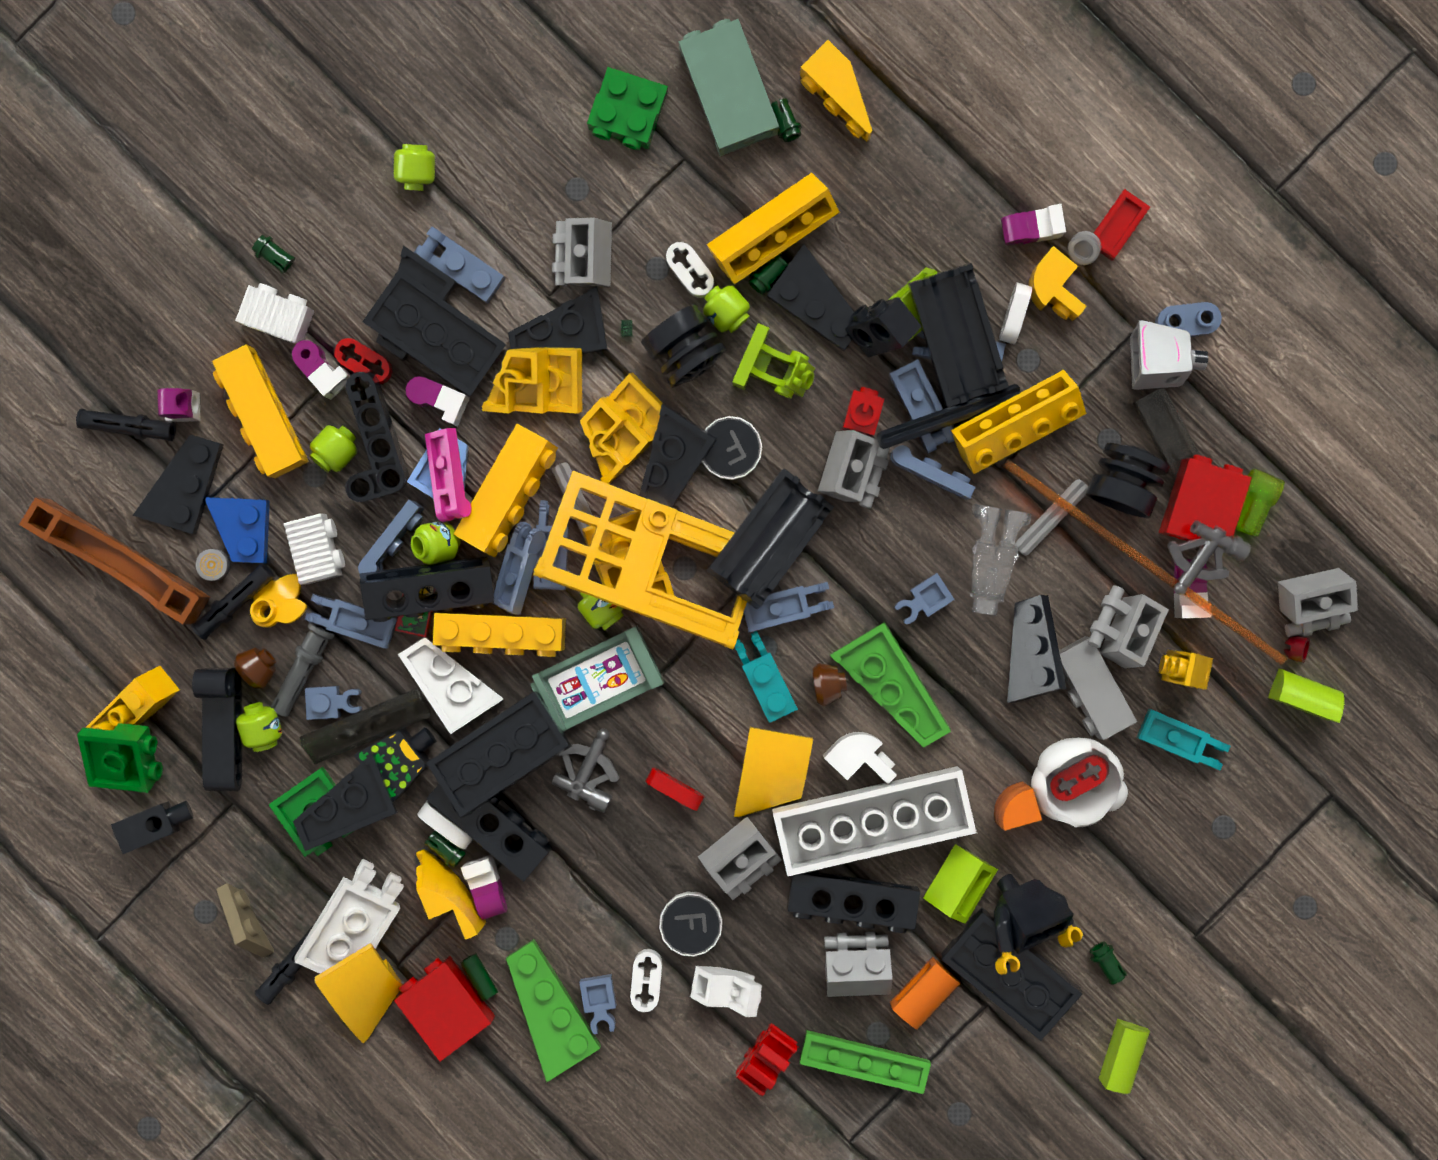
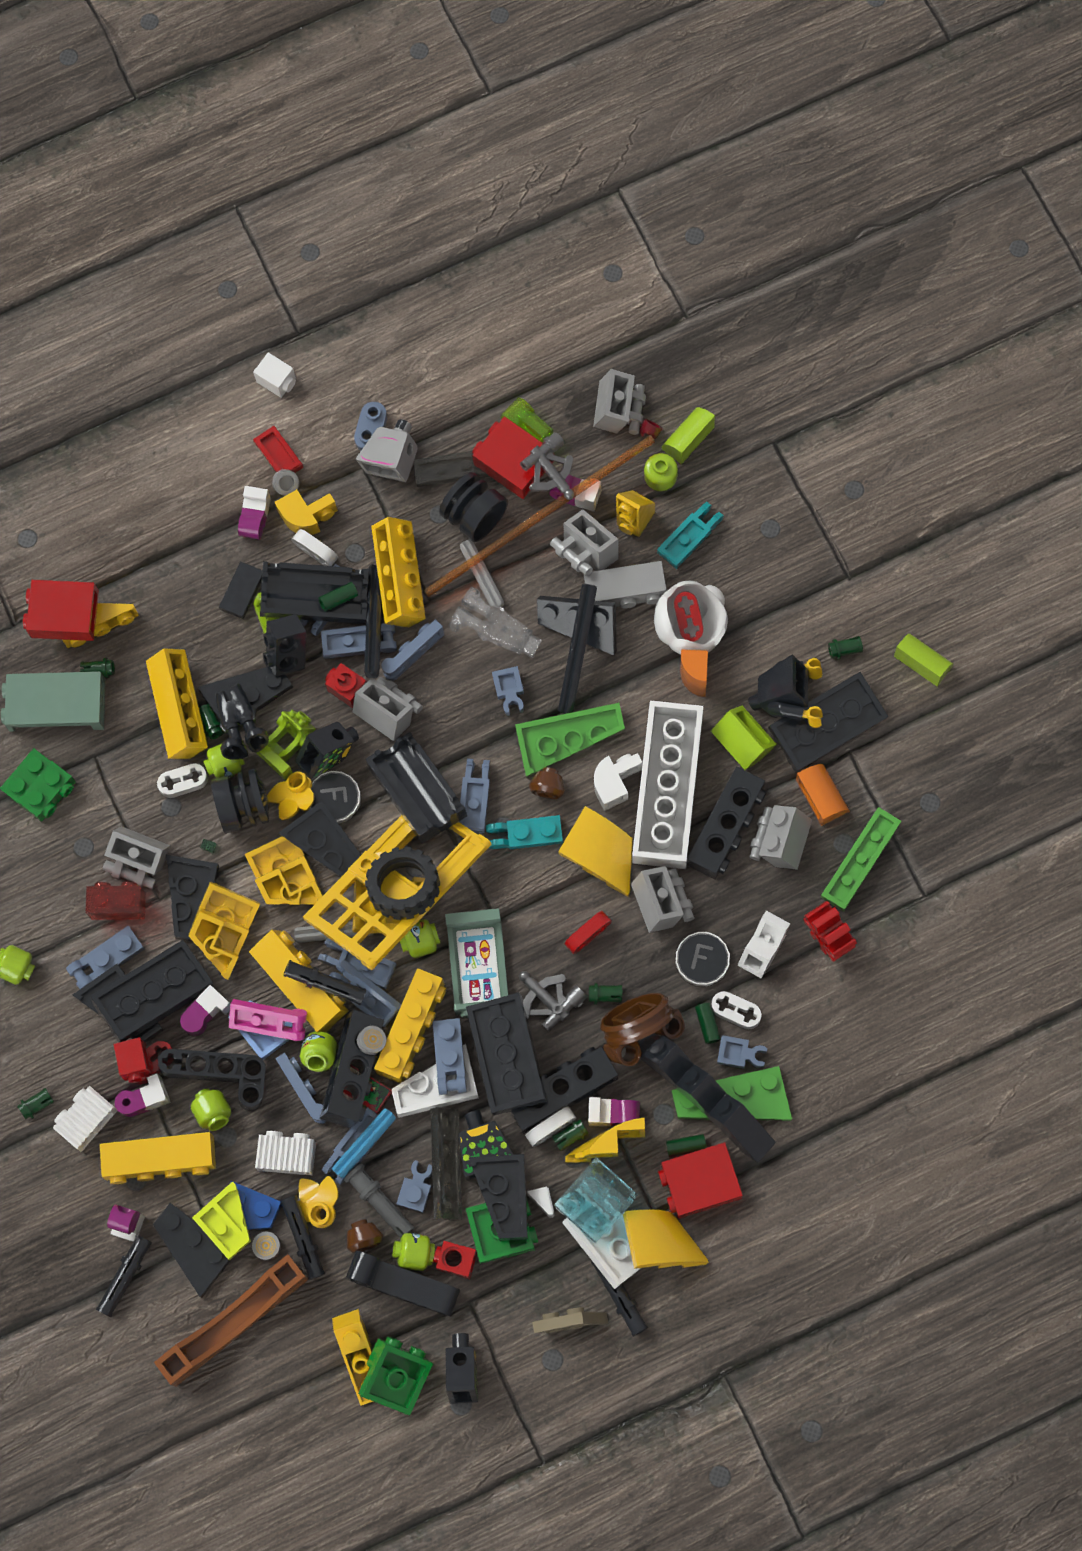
camera: 60 degrees left, 15 degrees down
(215, 513) = (225, 1221): none -> neon yellow wing
(257, 784) = (466, 1266): none -> red brick
(350, 343) = (132, 1060): none -> red brick
(352, 631) = (364, 1143): none -> dark azure axle
(364, 844) = (543, 1199): none -> white slope
(375, 909) = (595, 1200): none -> clear light blue slope
(462, 599) = (371, 1040): none -> light grey tile
(481, 688) = (449, 1055): none -> sand blue plate
(505, 511) = (324, 982): none -> black pin
(522, 251) = (115, 902): none -> clear red brick
(538, 971) = (707, 1095): none -> black arch
(558, 880) = (635, 1021): none -> reddish brown piece
(613, 831) = (604, 993): none -> dark green pin
(620, 954) = (707, 1023): none -> dark green axle
(669, 546) = (399, 859): none -> black tyre
(711, 401) = (292, 795): none -> yellow plate
(779, 420) = (325, 749): none -> black torso
(780, 300) = (232, 716): none -> black piece
(833, 50) = (61, 610): none -> red brick
(936, 248) = (241, 590): none -> black tile
(962, 365) = (338, 596): none -> dark green axle
(997, 663) = (577, 648): none -> black axle
(1213, 184) = (275, 375): none -> white brick
(1247, 681) = (660, 472): none -> lime head

